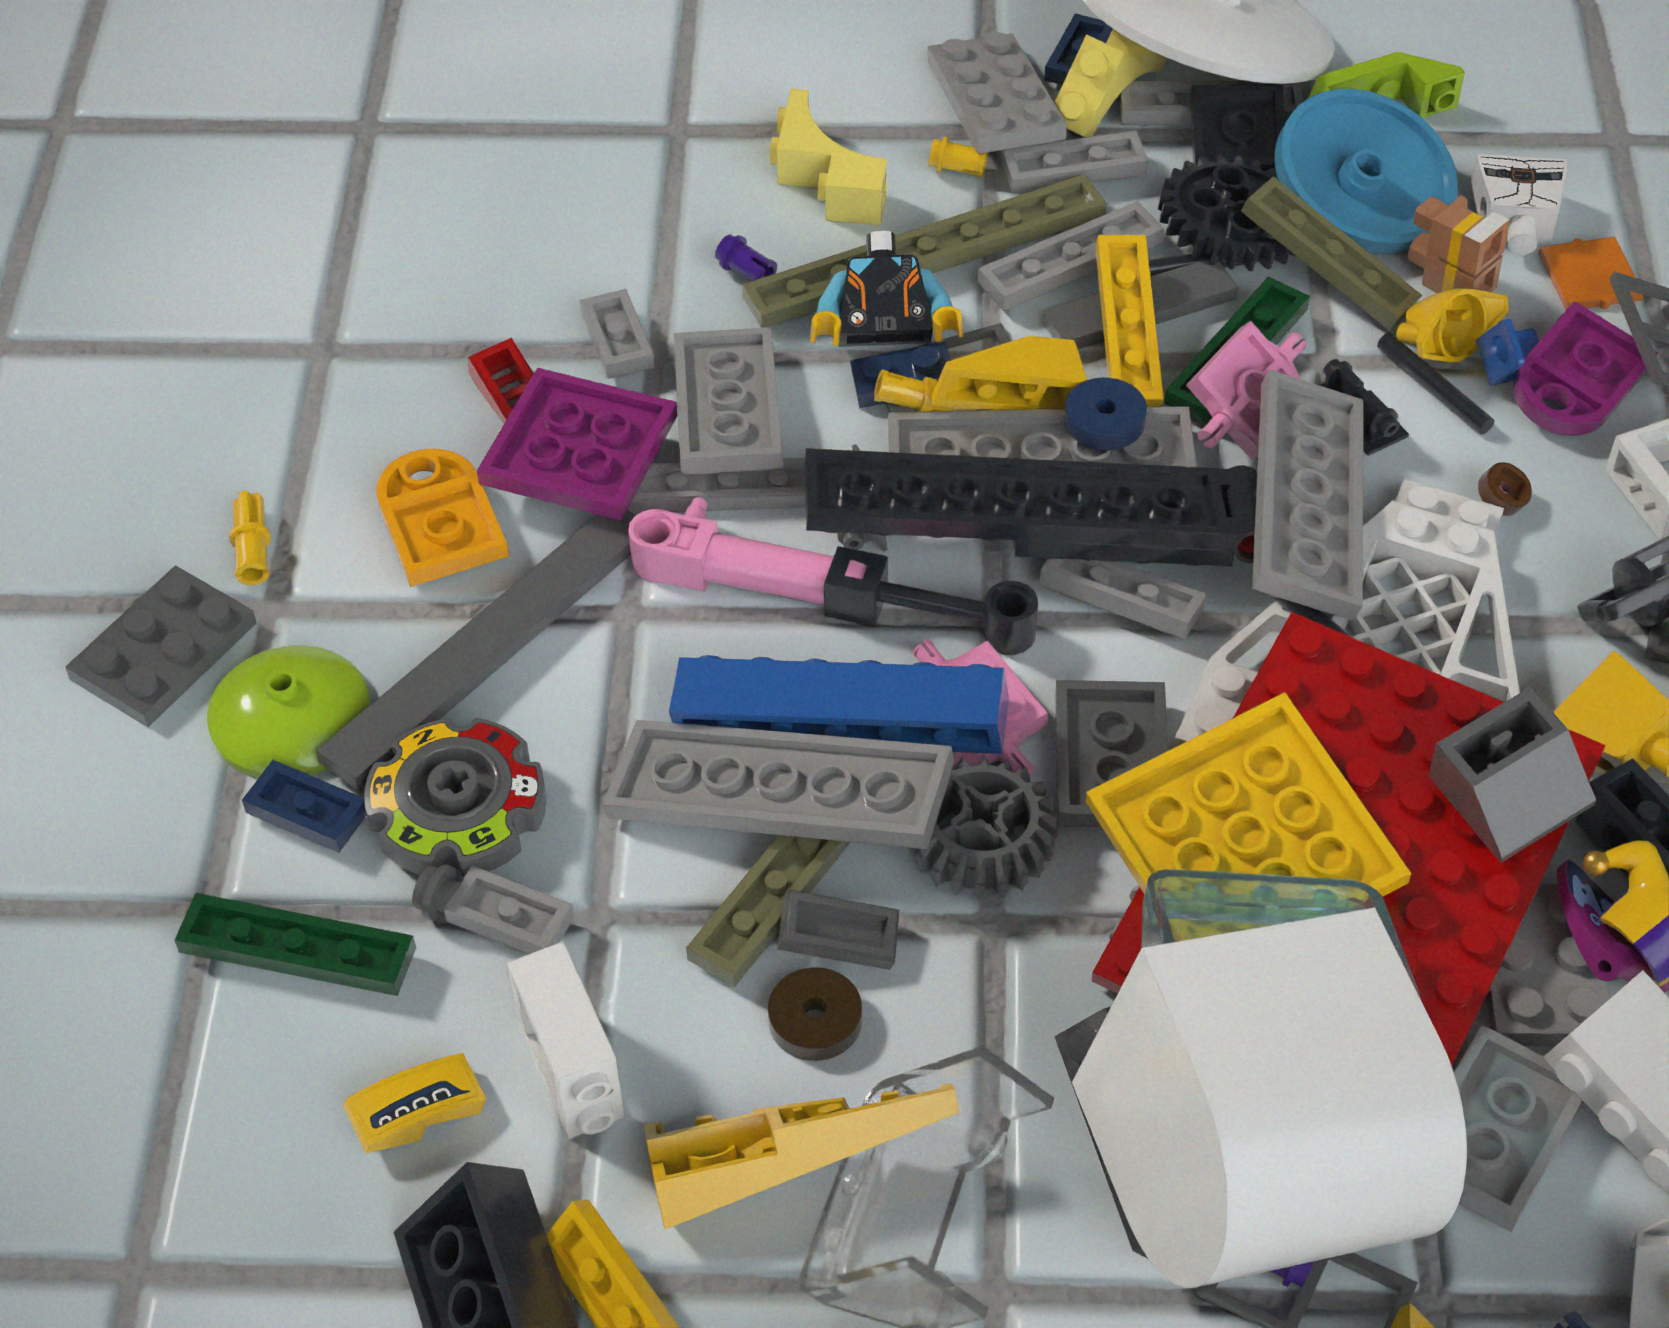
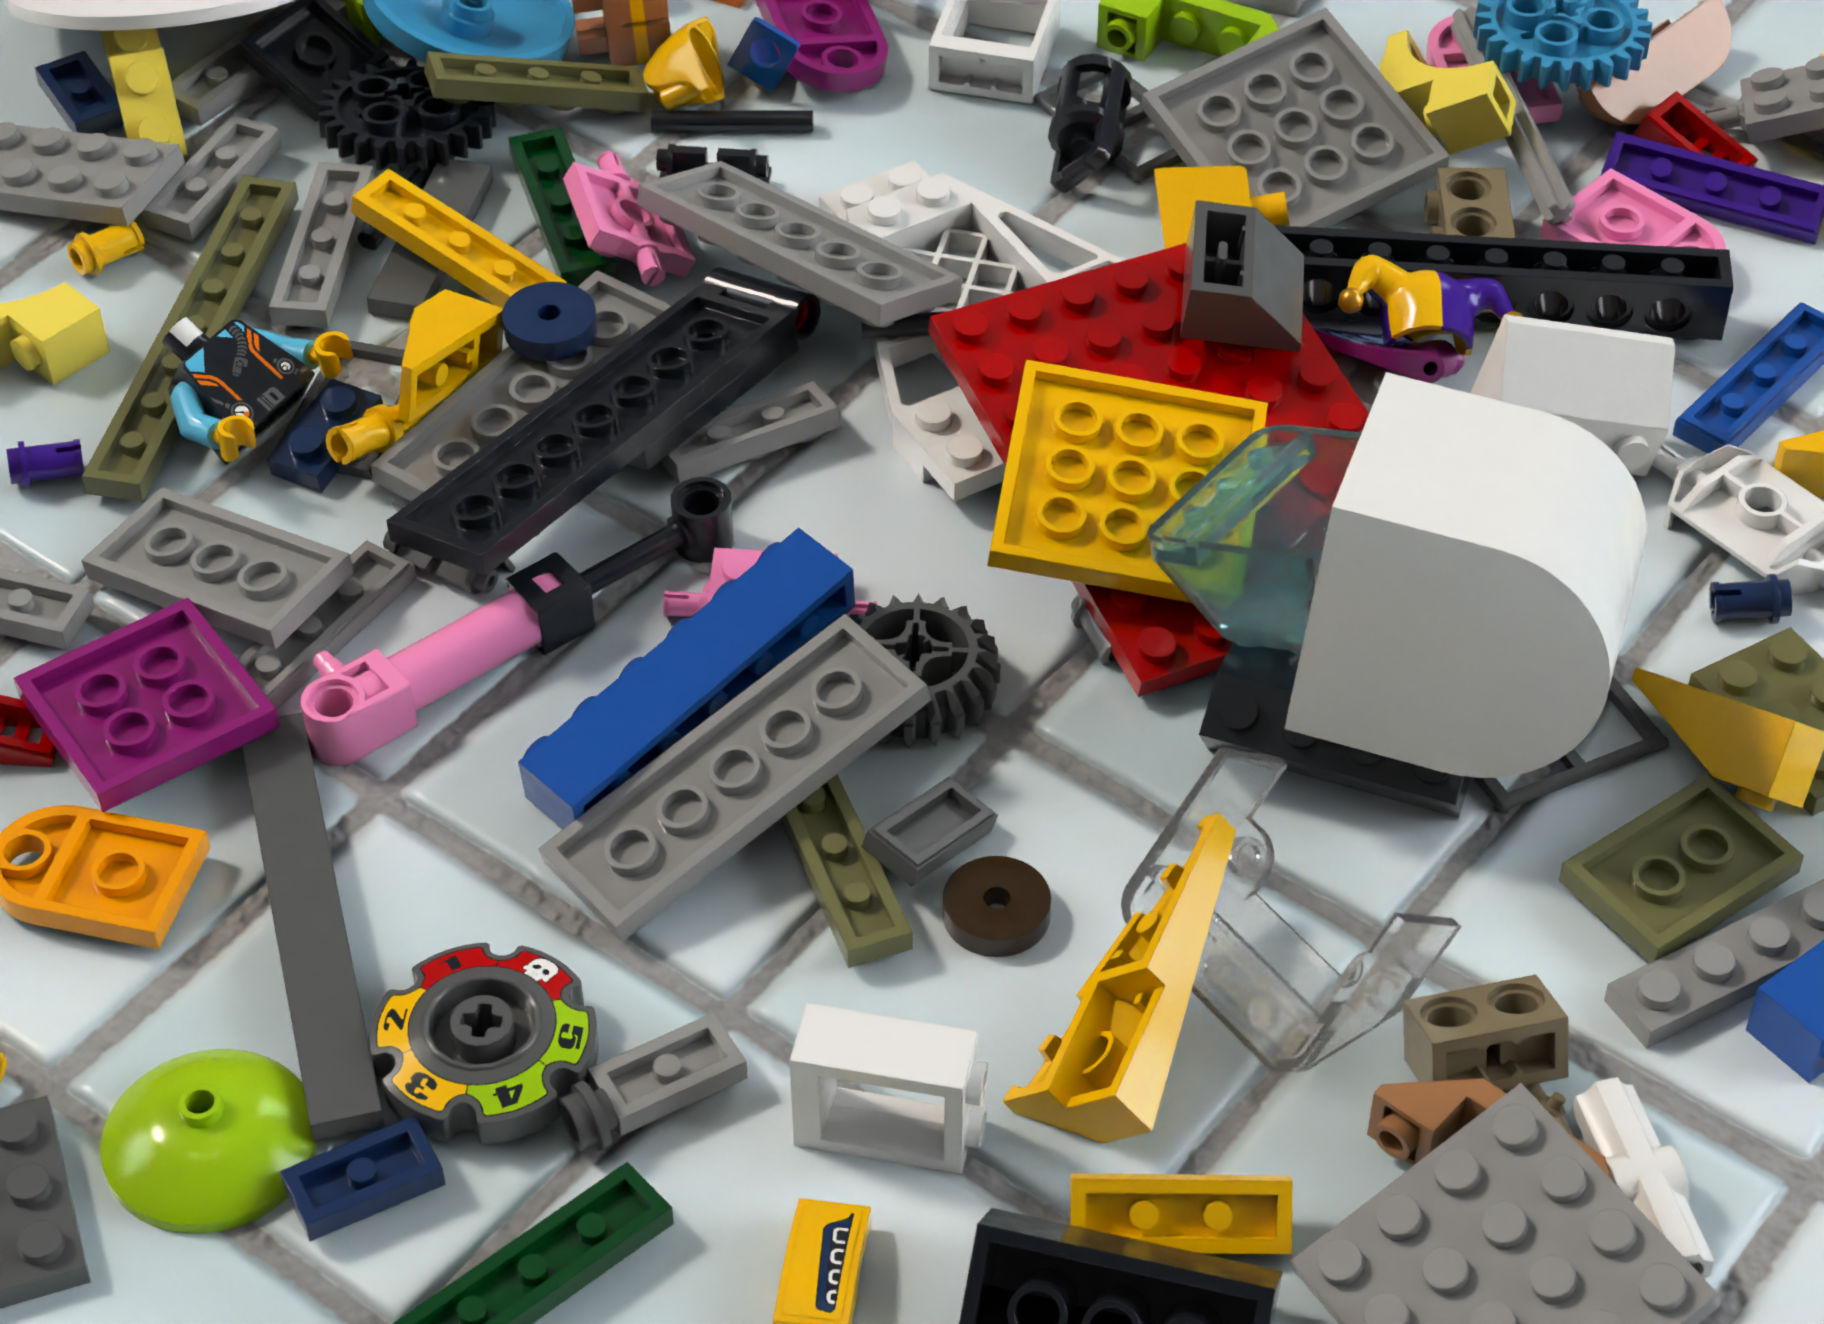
camera: 55 degrees left, 5 degrees down
(1102, 734) = (911, 539): dark grey plate -> none
(1505, 487) = (892, 146): reddish brown tile -> none

